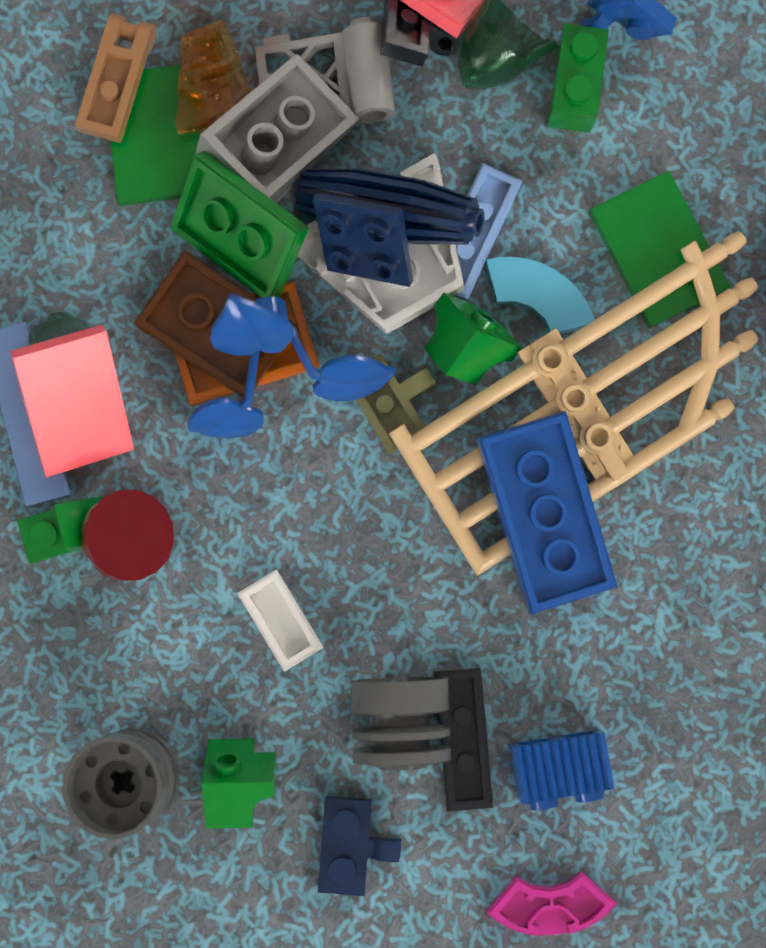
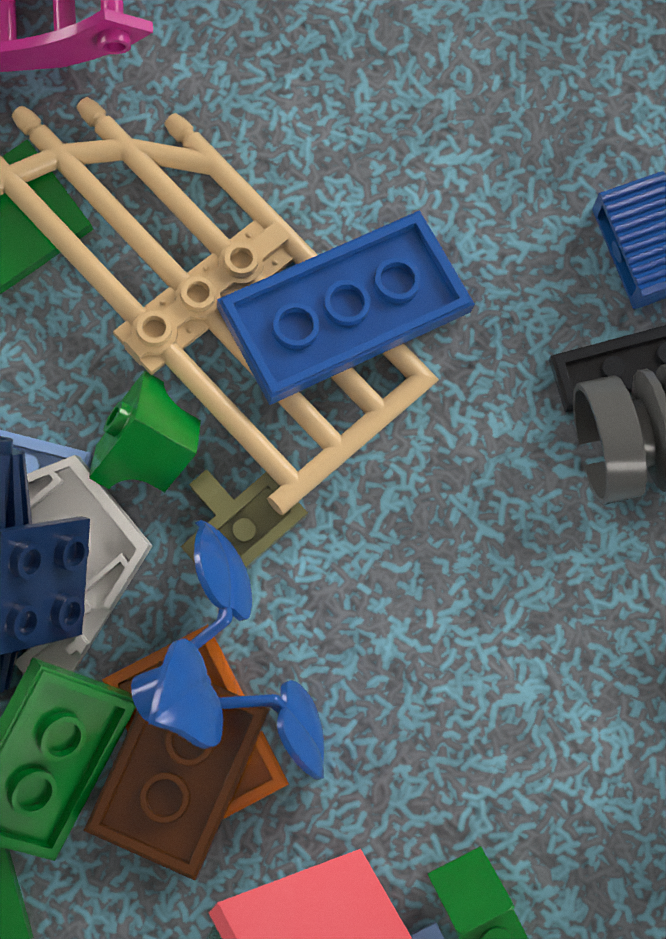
camera: 95 degrees left, 5 degrees down
(127, 535) = (477, 831): dark red tile -> none
(280, 620) = (543, 613): white tile -> none
(540, 290) = (65, 364): medium azure tile -> none

